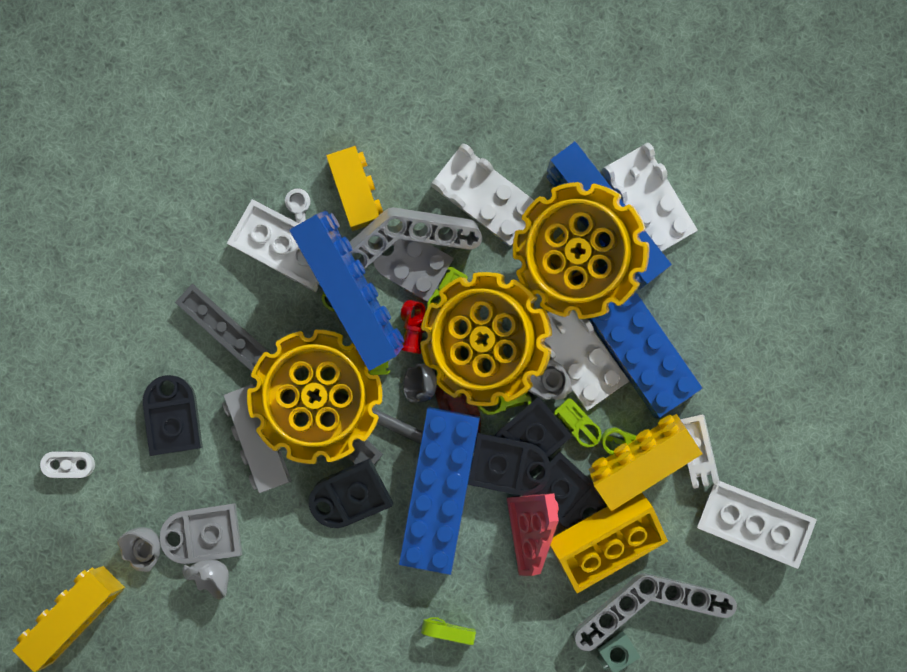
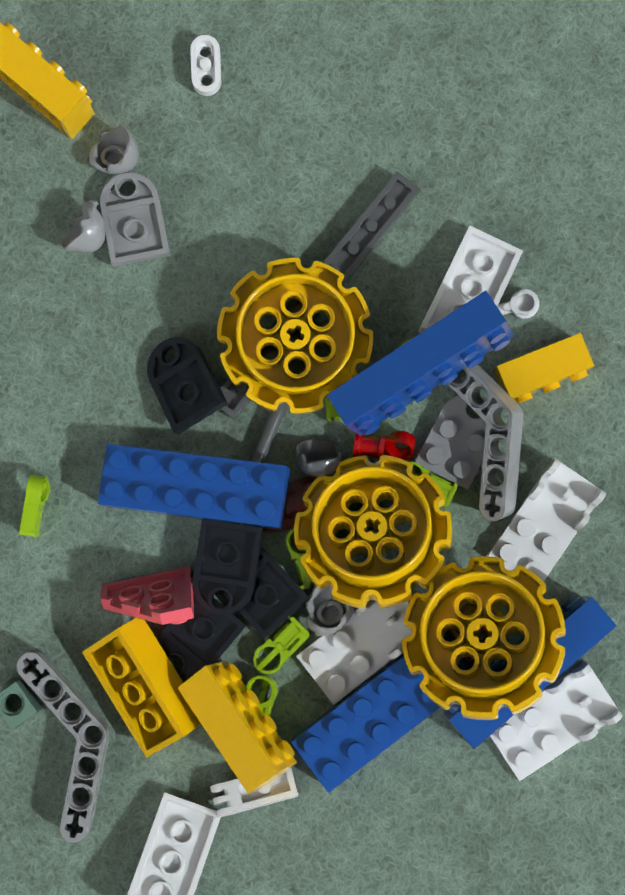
camera: 85 degrees right, 0 degrees up
(172, 419) = (262, 177): black plate -> none
(265, 464) = (212, 287): light grey brick -> none

